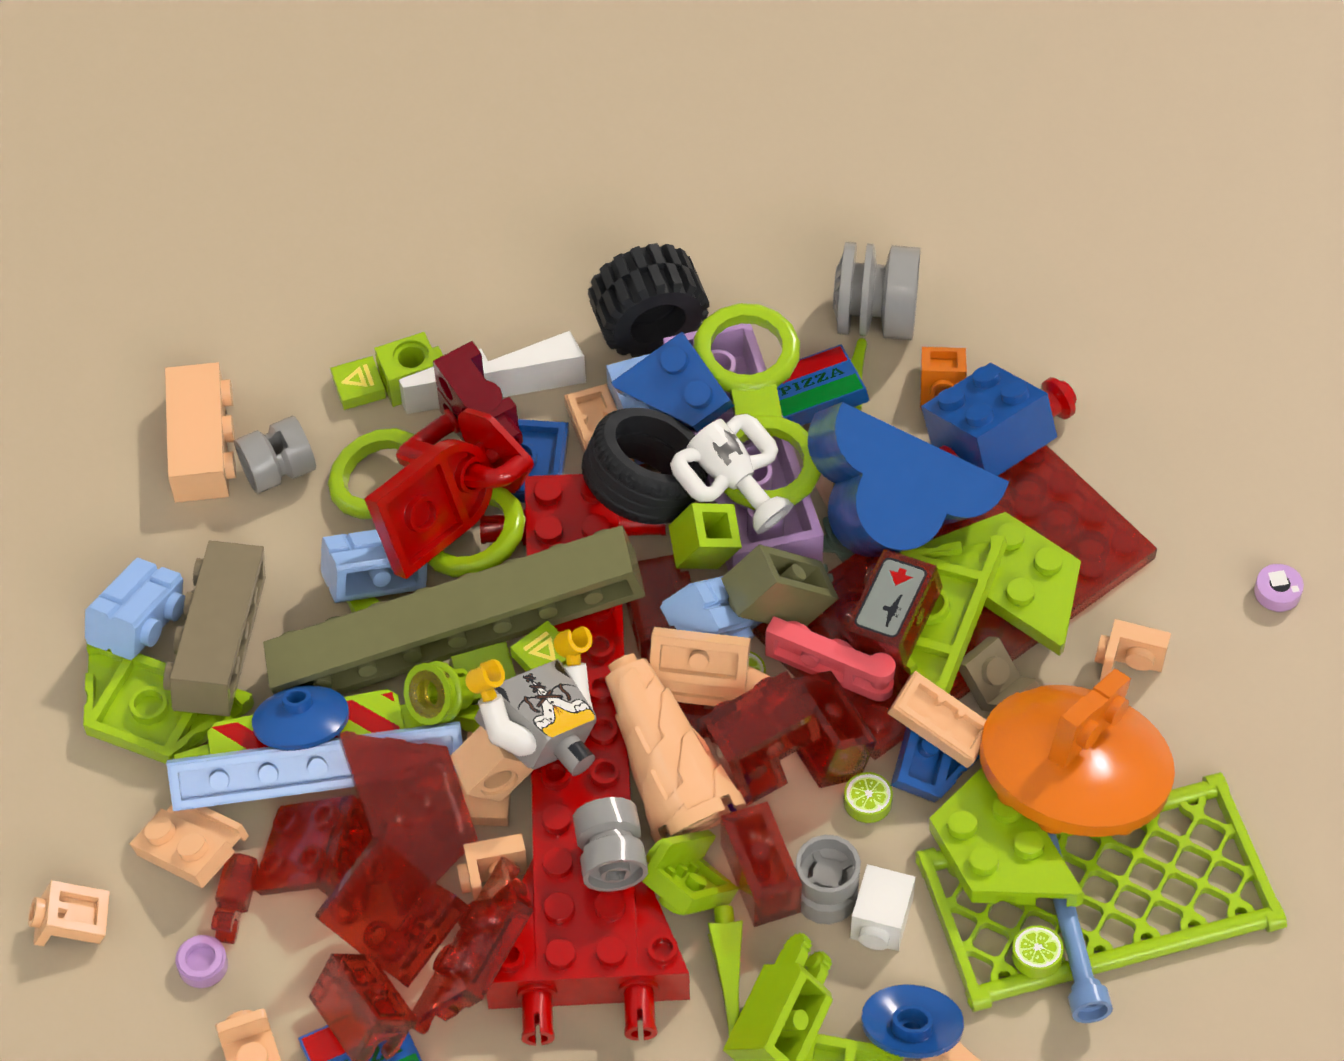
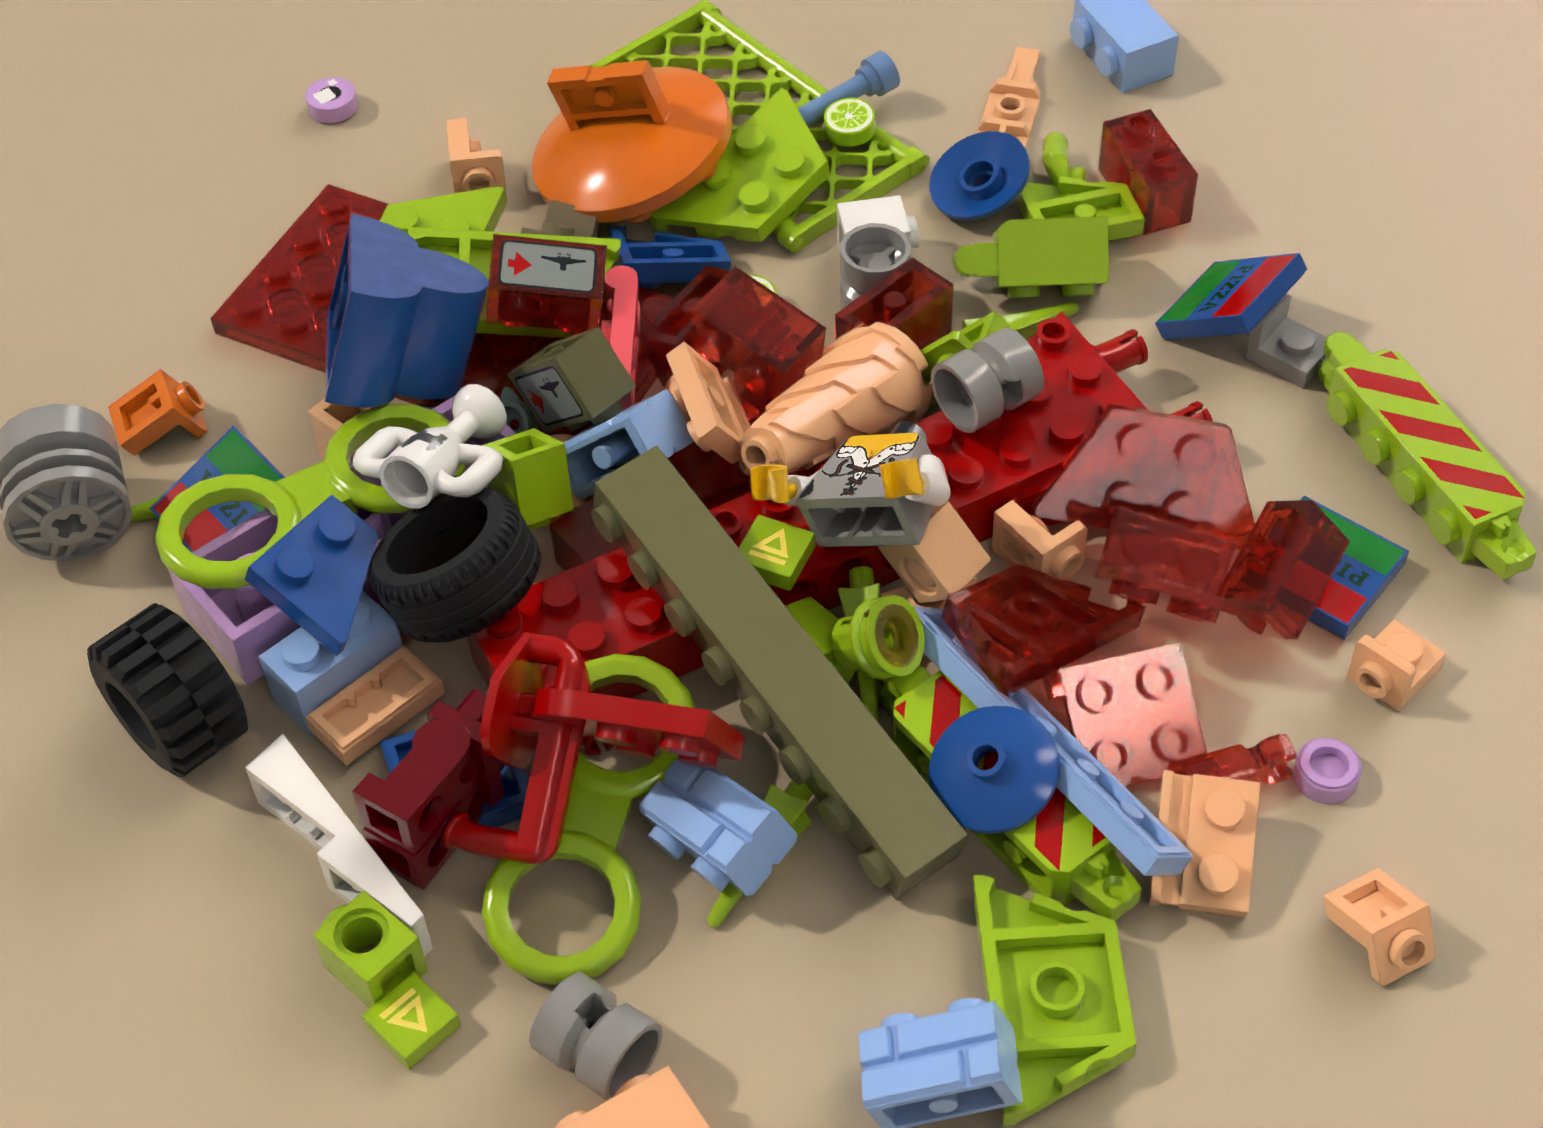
camera: 115 degrees left, 5 degrees down
(216, 628) = (912, 945): dark tan brick -> none
(939, 719) = (650, 234): light nougat plate -> none
(997, 417) = (230, 332): blue brick -> none

